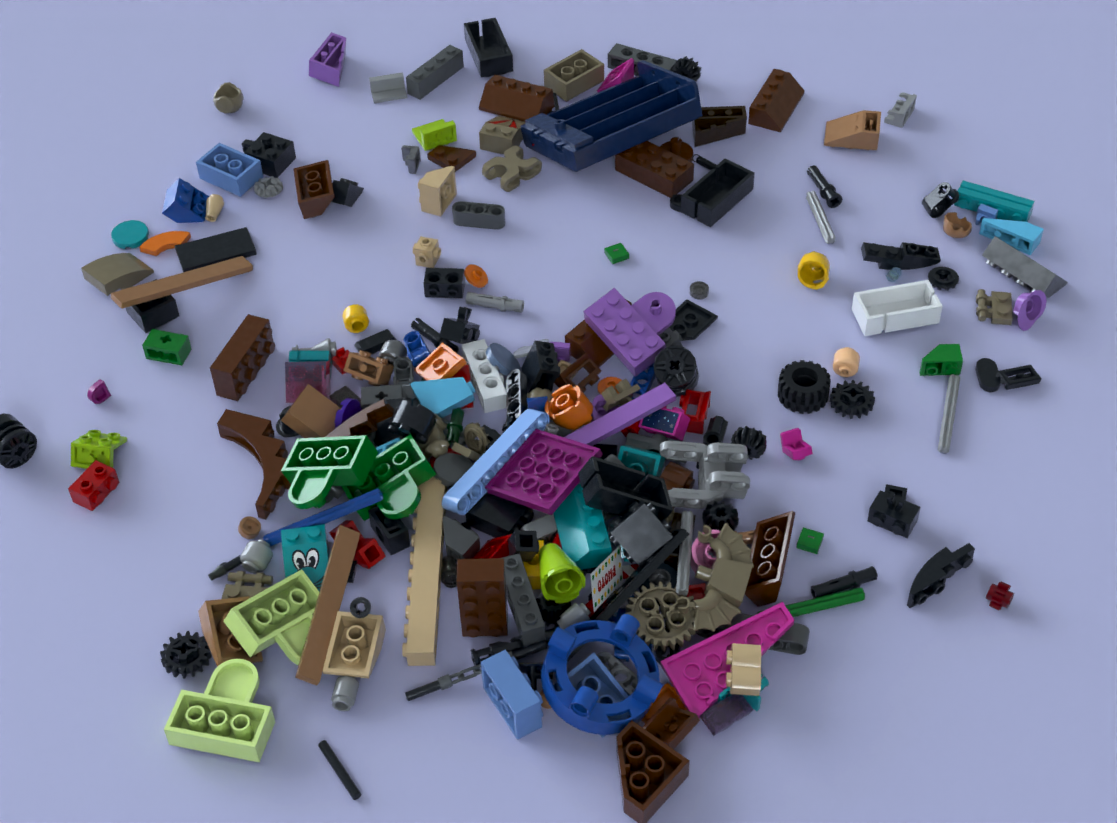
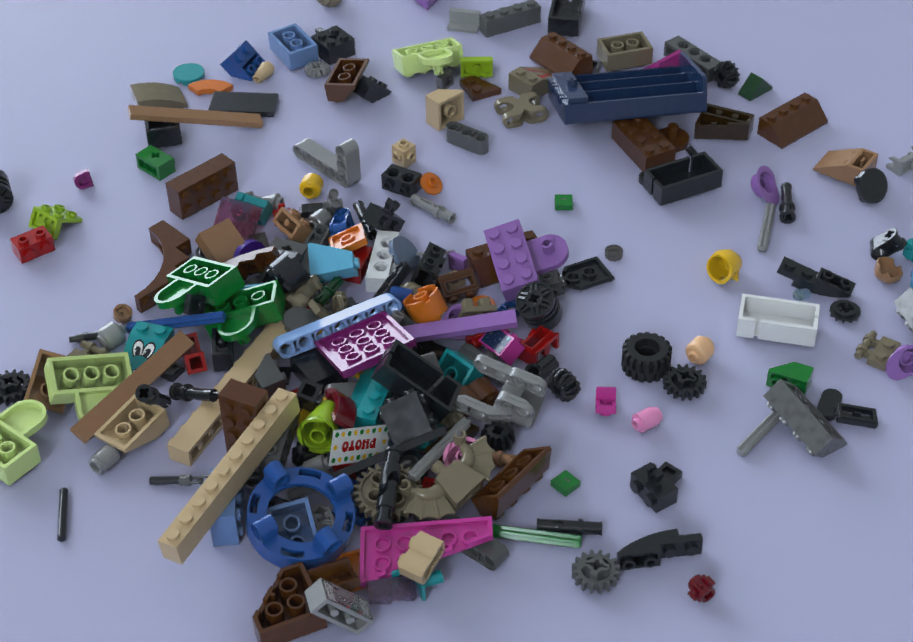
camera: 25 degrees right, 5 degrees down
(338, 491) = (194, 304): none -> black tile
(377, 292) = (341, 168): none -> light grey beam
(382, 138) = (427, 56): none -> yellowish green brick
(386, 588) = (188, 392): none -> black pin
(397, 329) = (332, 203): none -> flat silver plate
(514, 663) = (228, 476): none -> tan brick
(578, 550) = (345, 409): none -> dark red slope
(668, 609) = (388, 489): none -> black piece
(699, 750) = (338, 606): none -> light grey brick
(717, 77) = (754, 87): none -> dark green slope
(794, 176) = (765, 186): none -> medium lavender piece
(843, 448) = (646, 419): none -> bright pink brick
(890, 145) = (871, 185): none -> black tile
(898, 617) = (595, 572): none -> dark grey gear
(981, 397) = (804, 419): none -> flat silver slope

